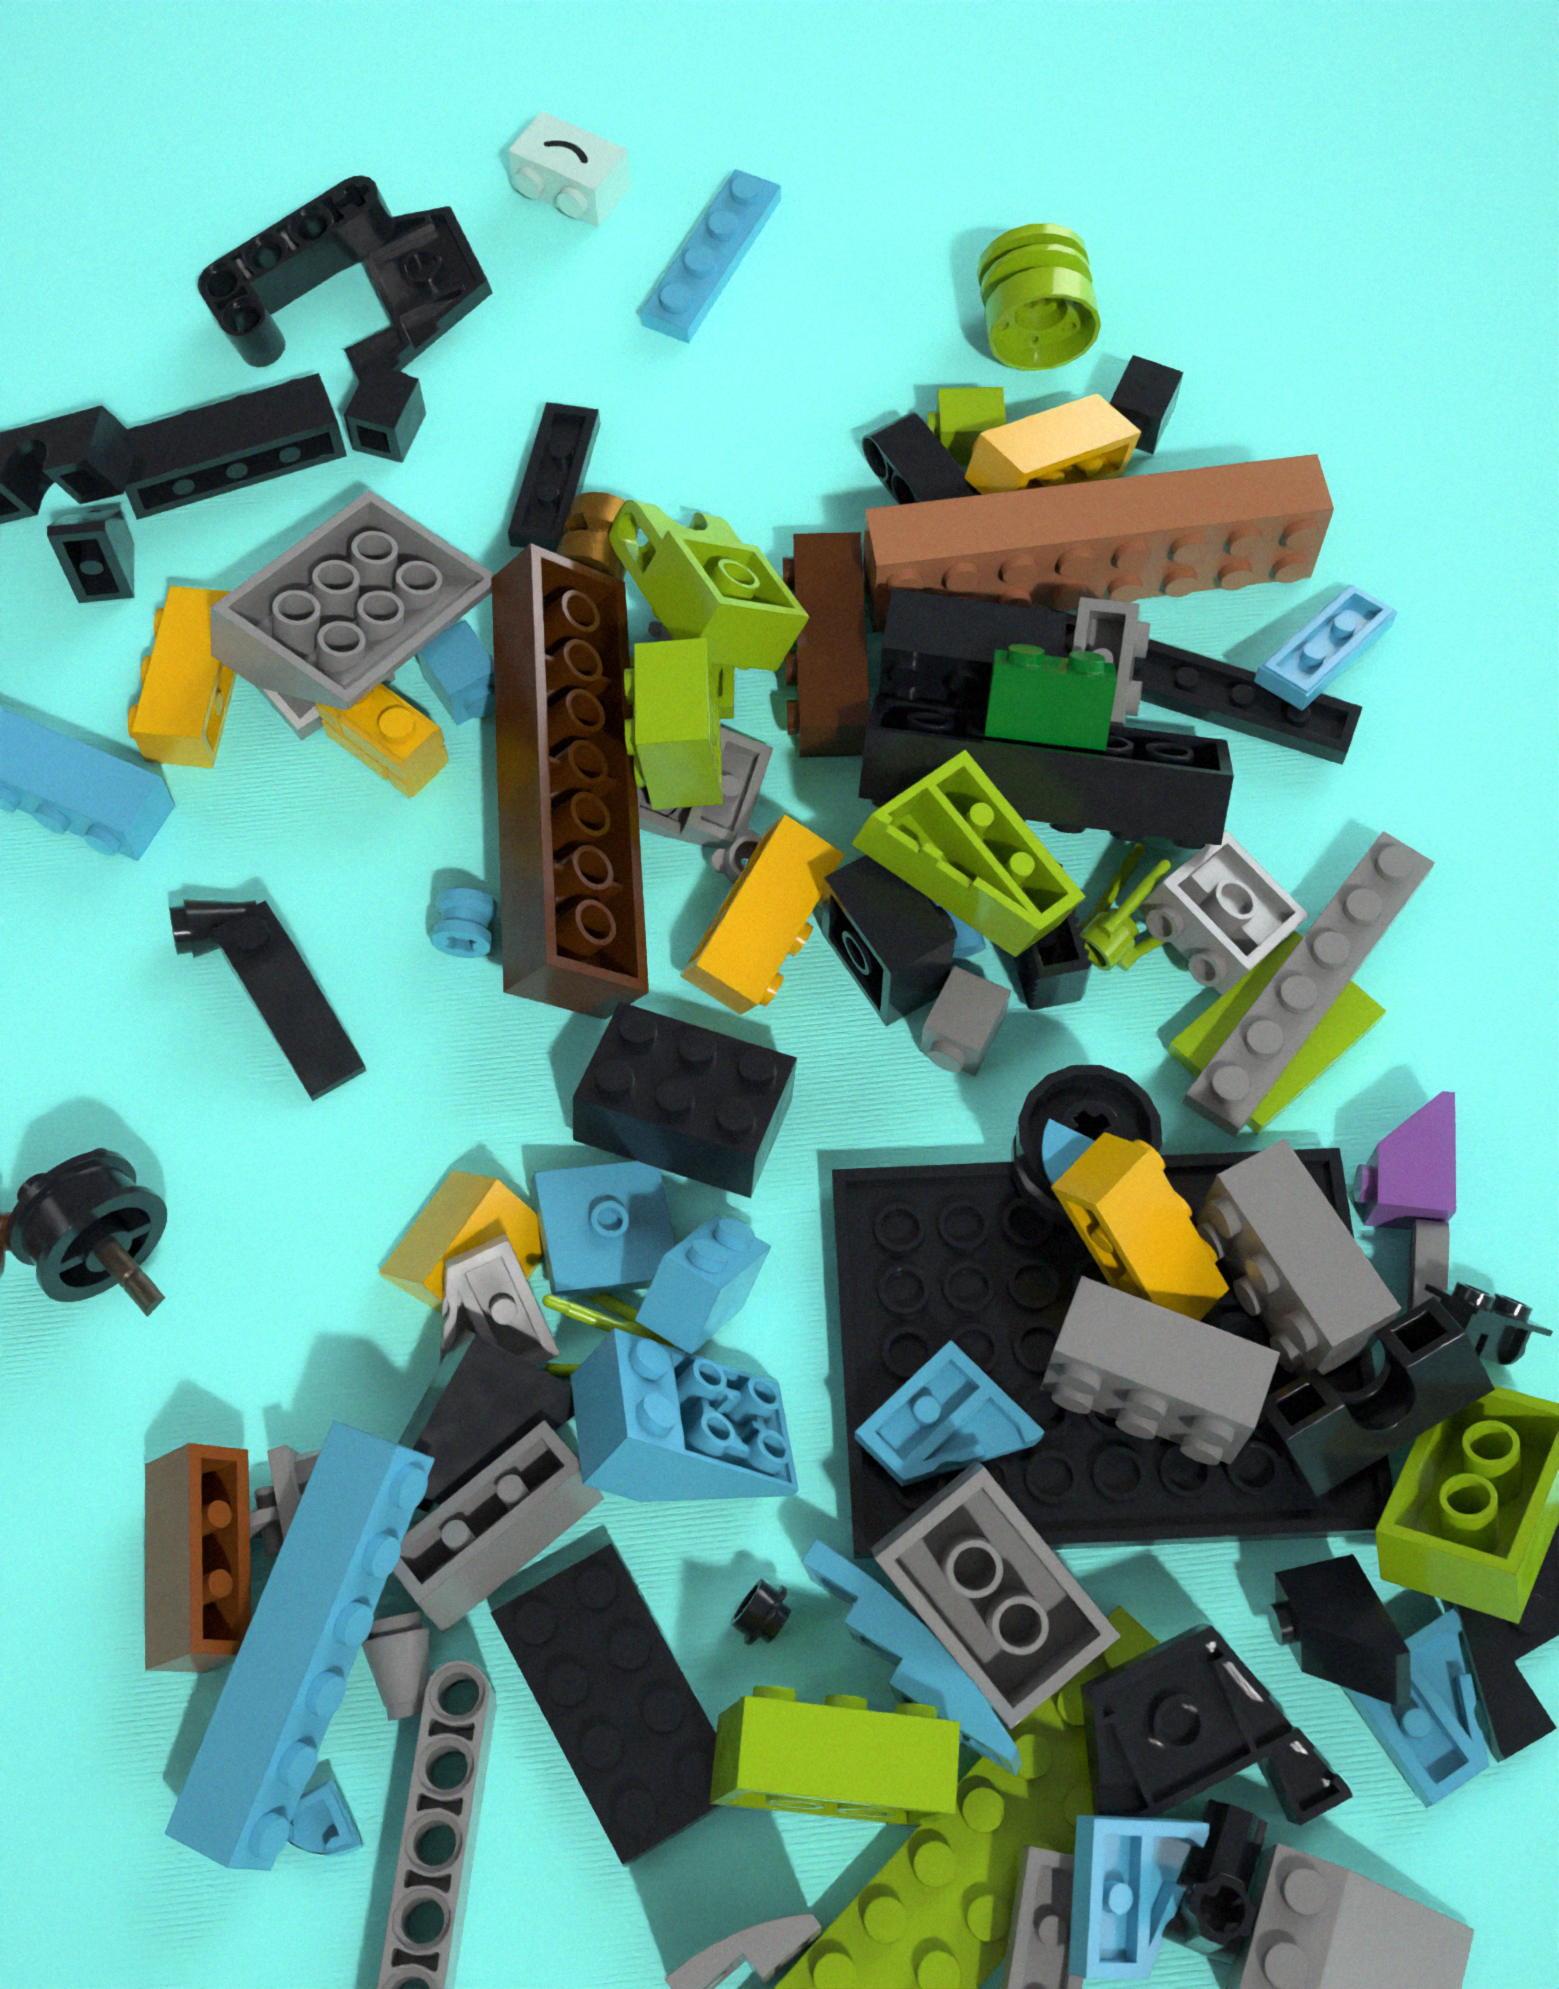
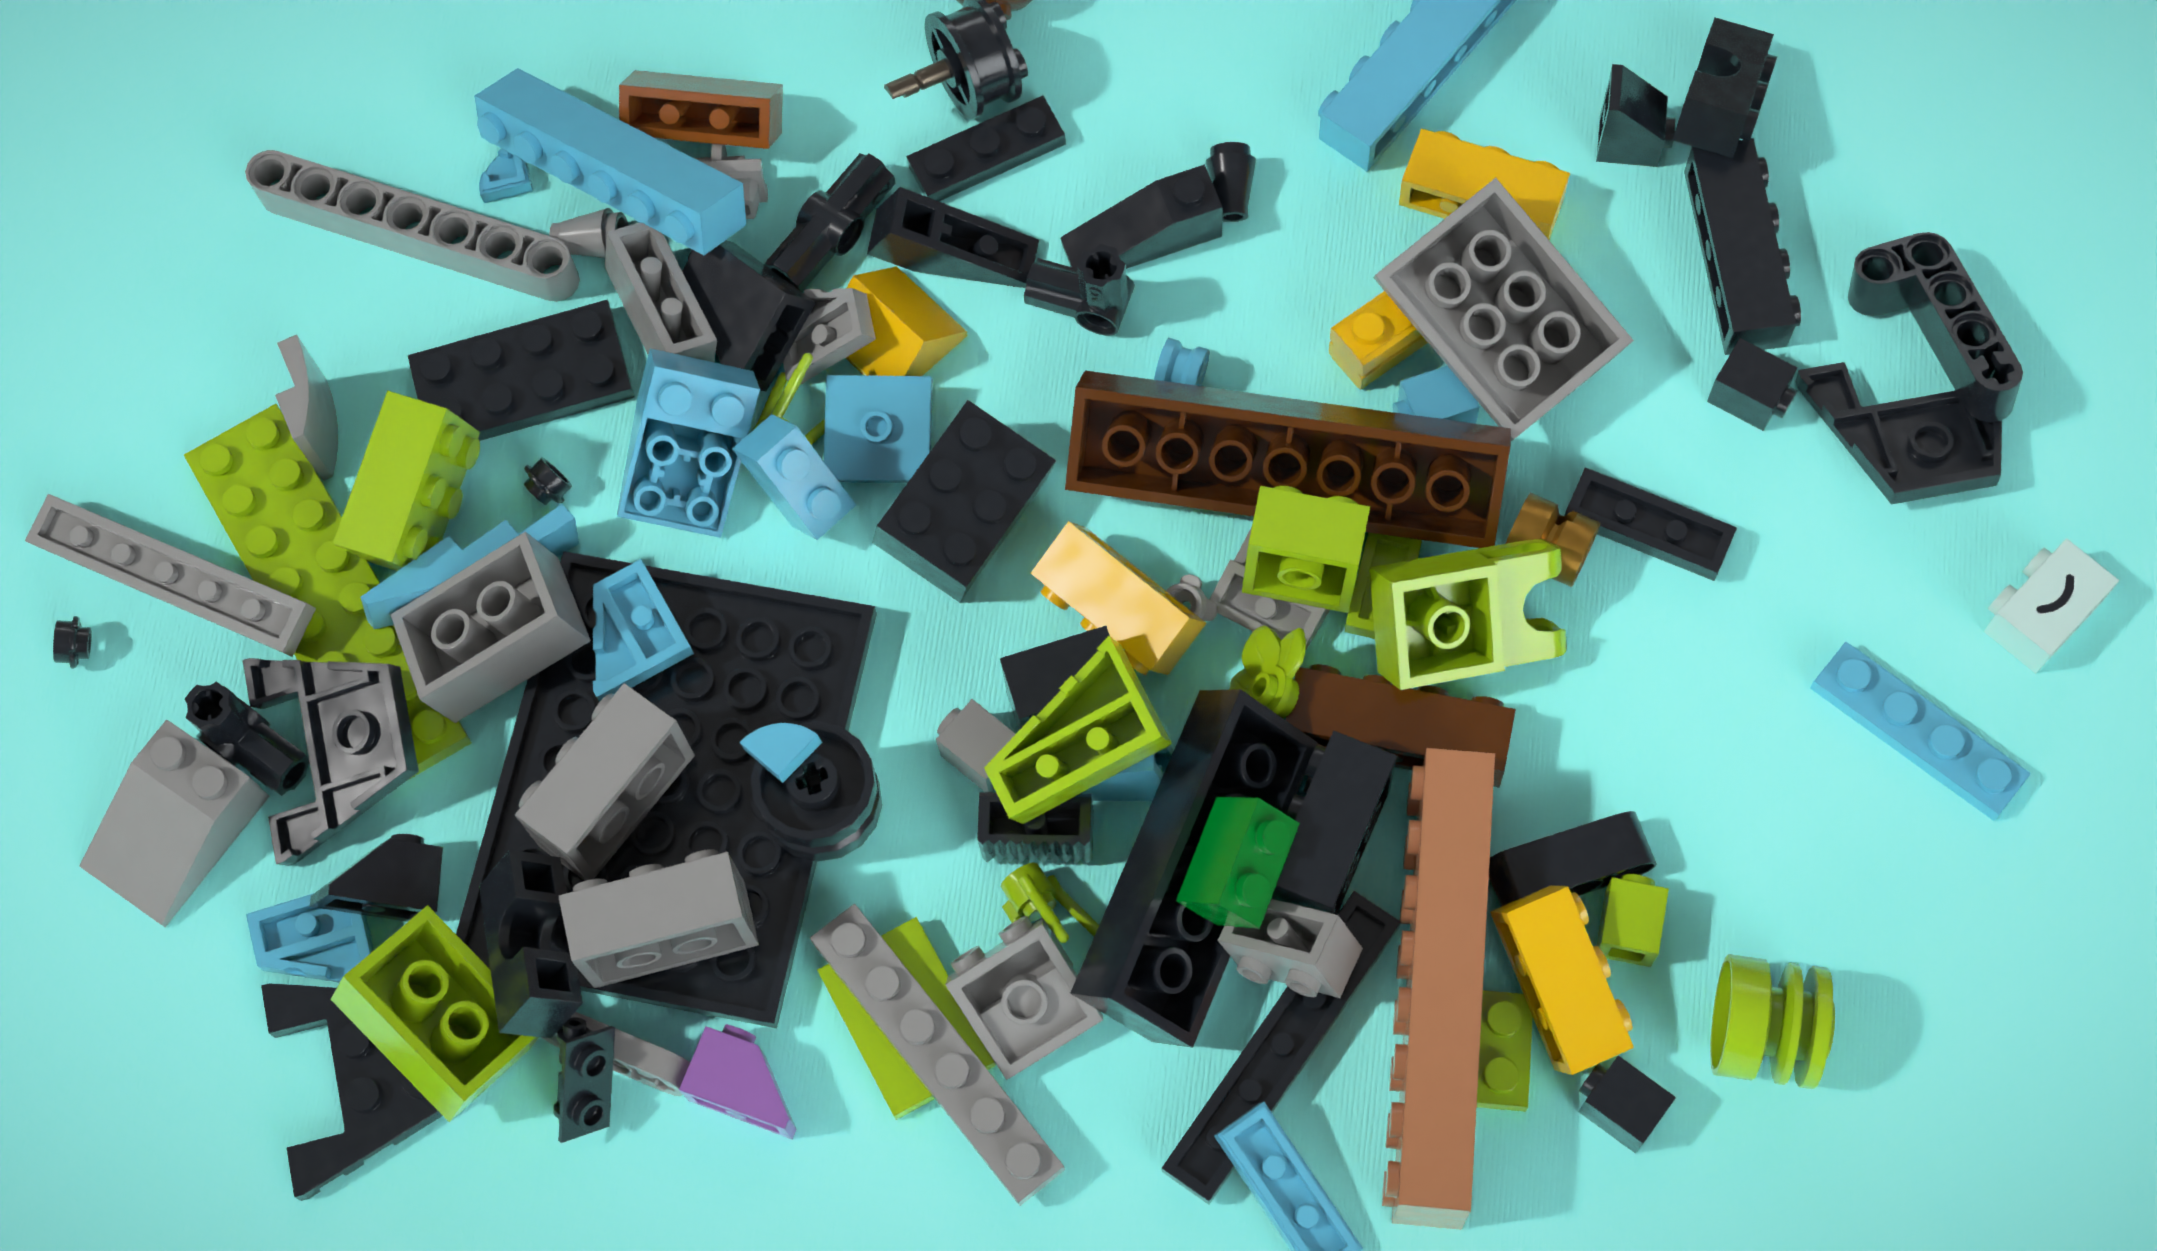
camera: 110 degrees right, 5 degrees up
(203, 1209) = (986, 149): none -> black plate
(333, 1357) = (831, 221): none -> black piece
(342, 1211) = (949, 241): none -> black slope
(388, 1033) = (1092, 293): none -> black piece
(803, 759) = (1271, 668): none -> lime plate
(1126, 1891) = (255, 660): medium azure wing -> none
(1140, 1227) = (707, 788): yellow brick -> none

